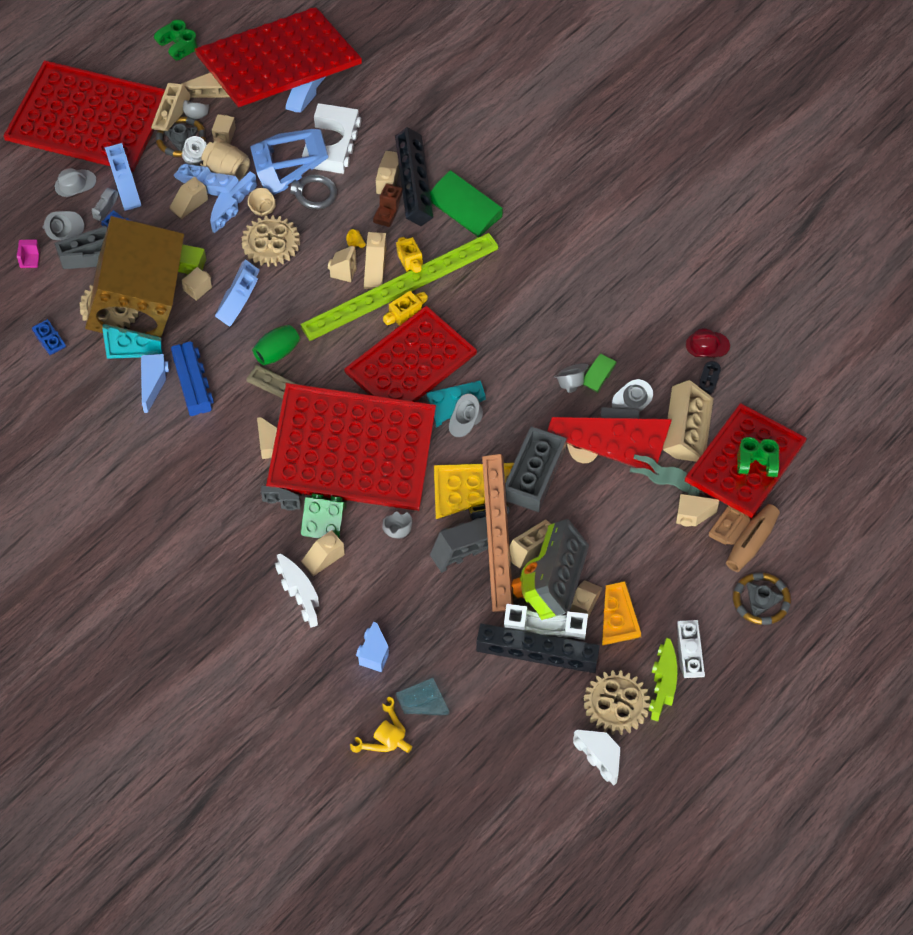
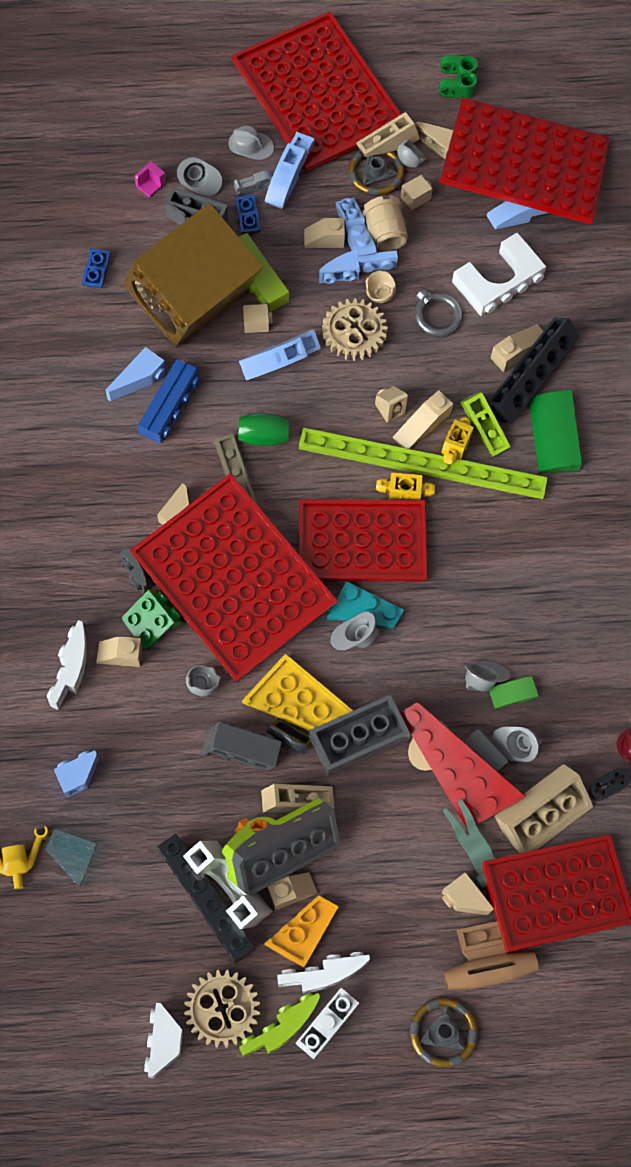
camera: 40 degrees right, 10 degrees up
(129, 343) = (149, 329): teal wing -> none
(193, 150) = (368, 190): white wheel -> none
(267, 168) = (407, 271): medium blue windscreen -> none
(355, 239) = (428, 386): yellow plate -> none
(389, 204) = (489, 376): copper slope -> none
(406, 226) = (485, 423): none -> lime slope
(497, 532) = (268, 765): nougat plate -> none
(658, 627) = (334, 972): none -> white slope
(765, 453) = (569, 900): green piece -> none

